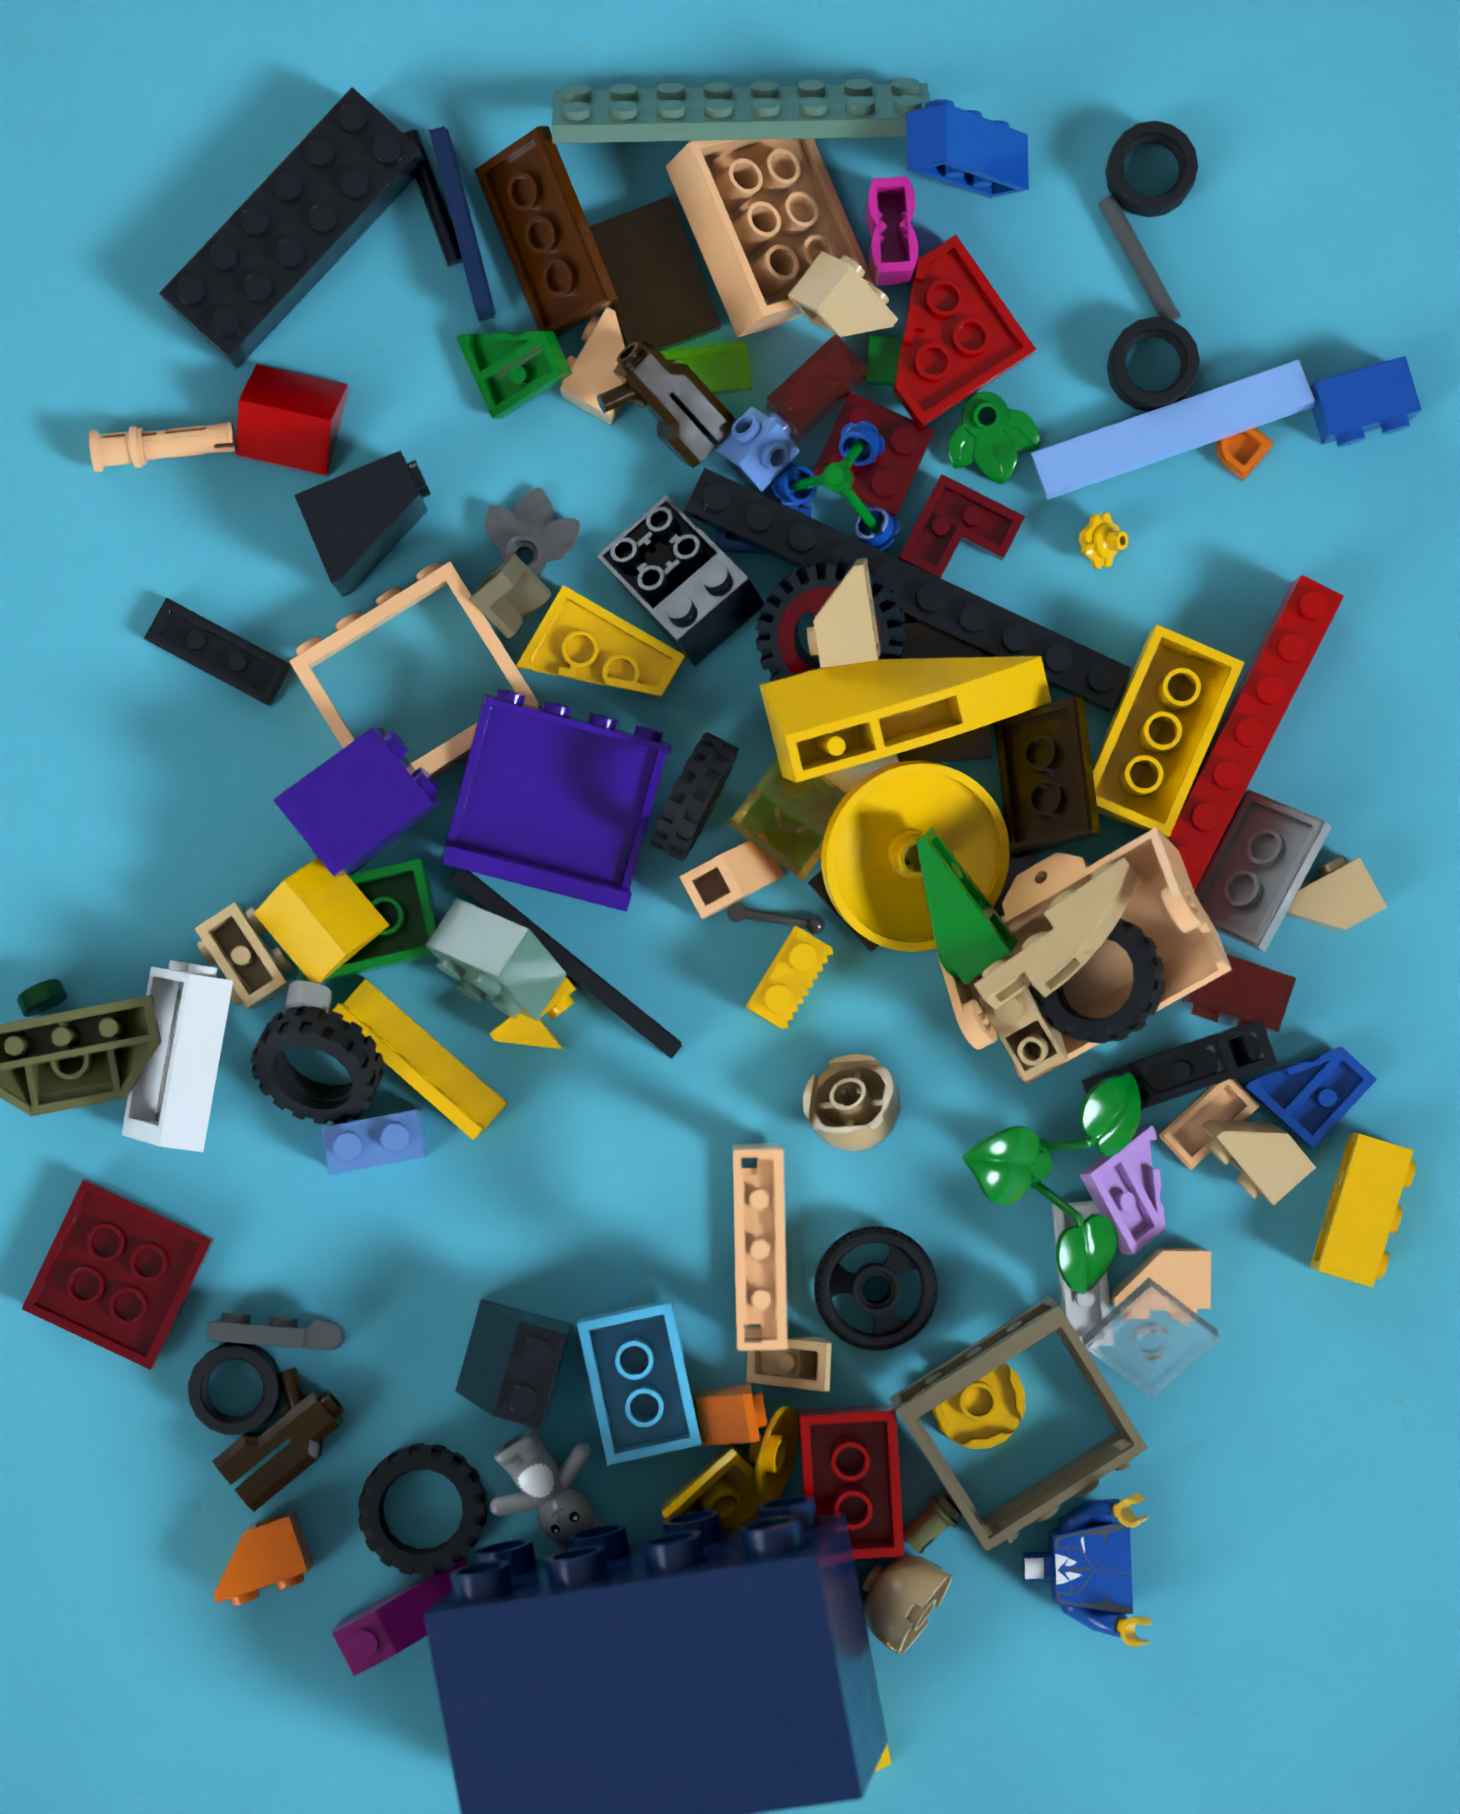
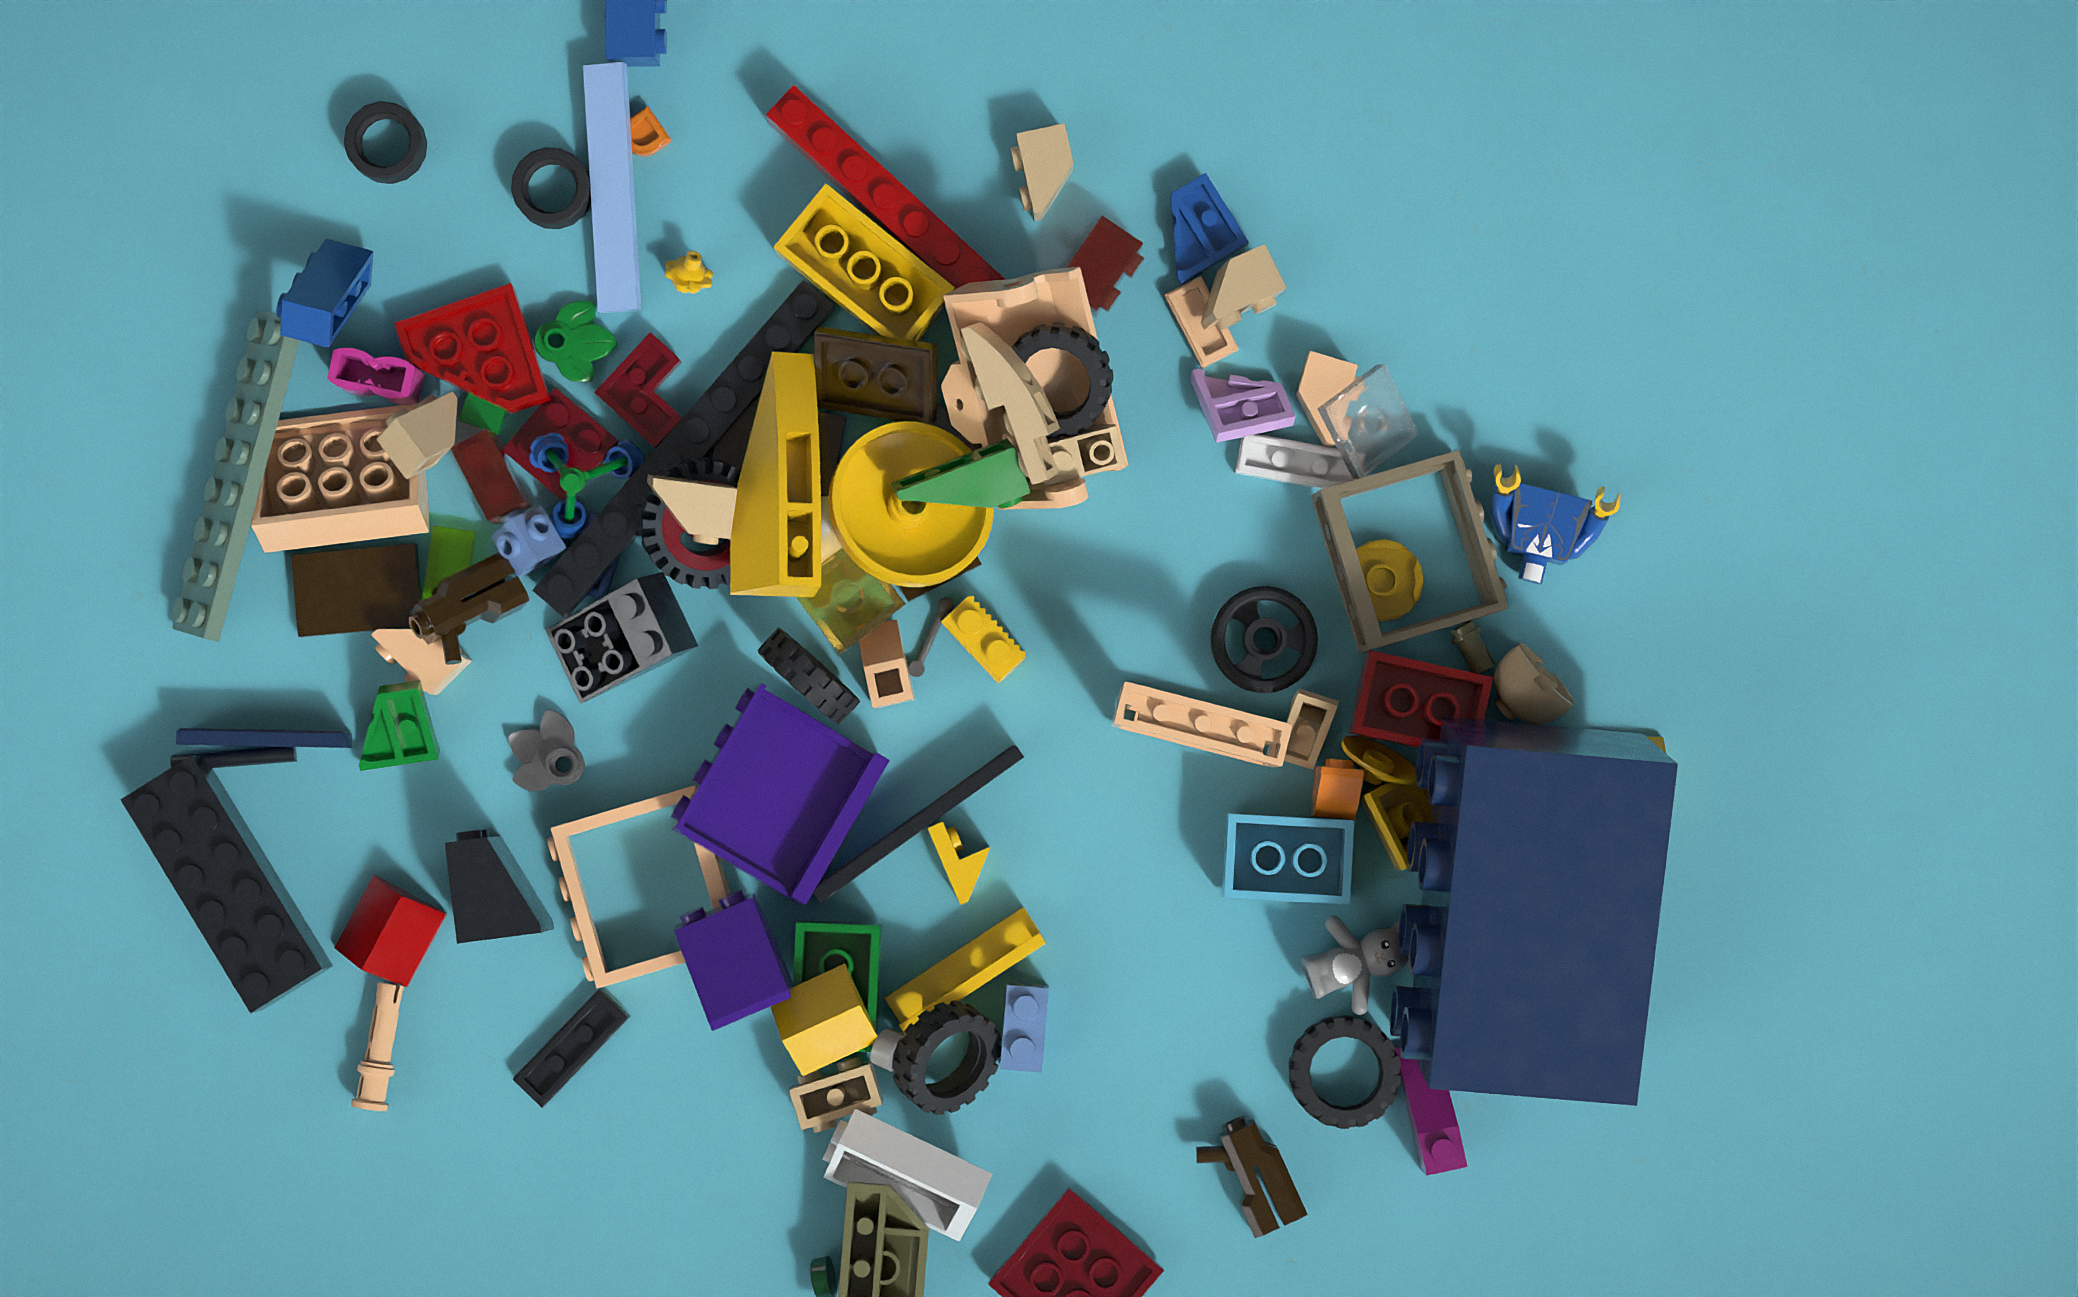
camera: 70 degrees left, 0 degrees up
(210, 1415) = (1203, 1234): black tyre -> none
(266, 1555) = (1346, 1214): orange slope -> none
(280, 1332) = (1163, 1152): dark grey hinge -> none
(495, 960) = (900, 881): sand green brick -> none
(510, 595) = (593, 785): dark tan panel -> none
(513, 1363) = (1242, 961): black slope -> none
(546, 233) = (293, 669): reddish brown tile -> none
(599, 648) = (659, 722): yellow wing -> none
(852, 1103) = (1103, 615): tan cylinder -> none
(1017, 1160) = (1190, 490): green plant -> none
(1138, 258) = (458, 175): dark grey bar -> none
(1197, 1063) = (1153, 334): black slope -> none
(1259, 868) = (1002, 219): light grey tile -> none
(1363, 1209) = (1311, 214): yellow brick -> none

